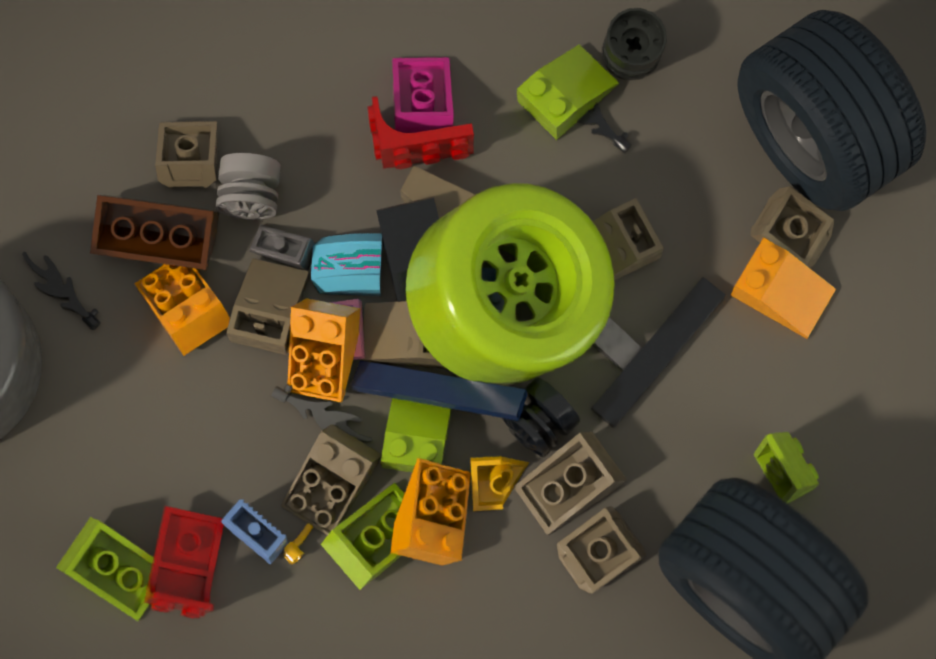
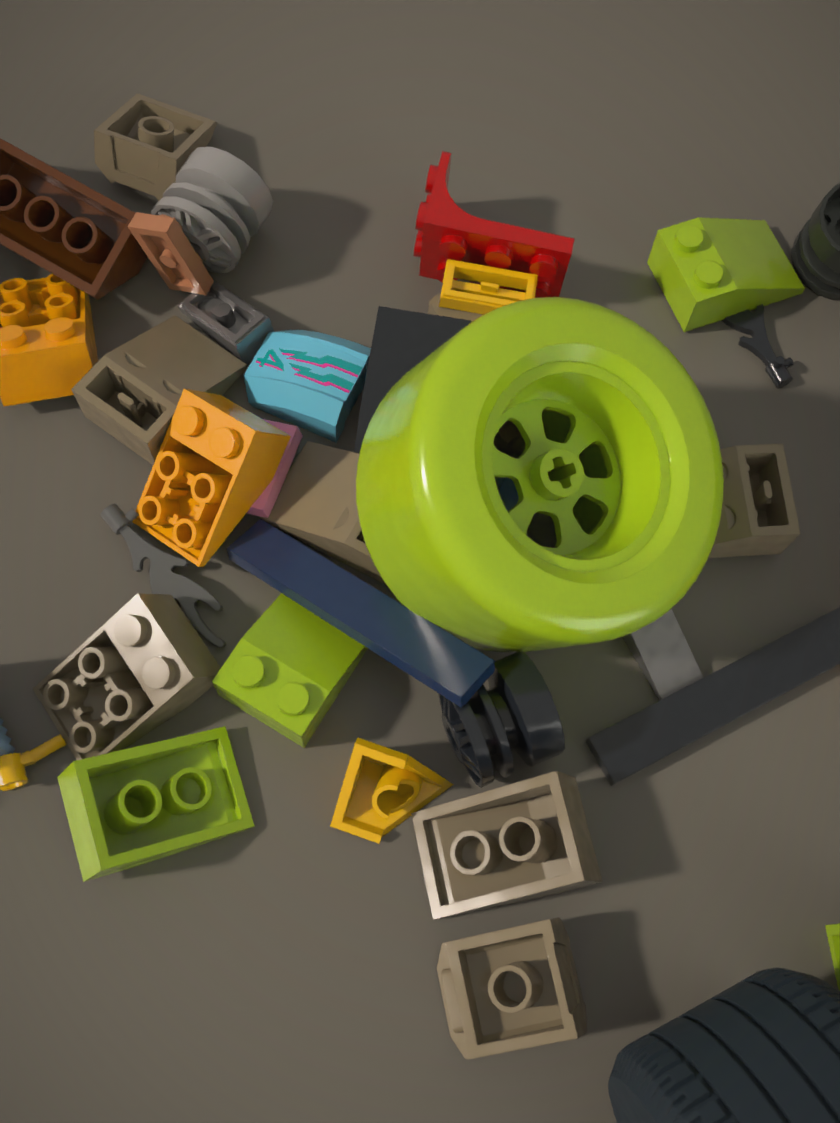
camera: 15 degrees right, 5 degrees down
(238, 224) = (171, 253): none -> nougat plate
(422, 94) = (517, 189): dark pink slope -> none
(432, 514) = (256, 805): light orange slope -> none
(437, 180) = (487, 295): none -> yellow tile

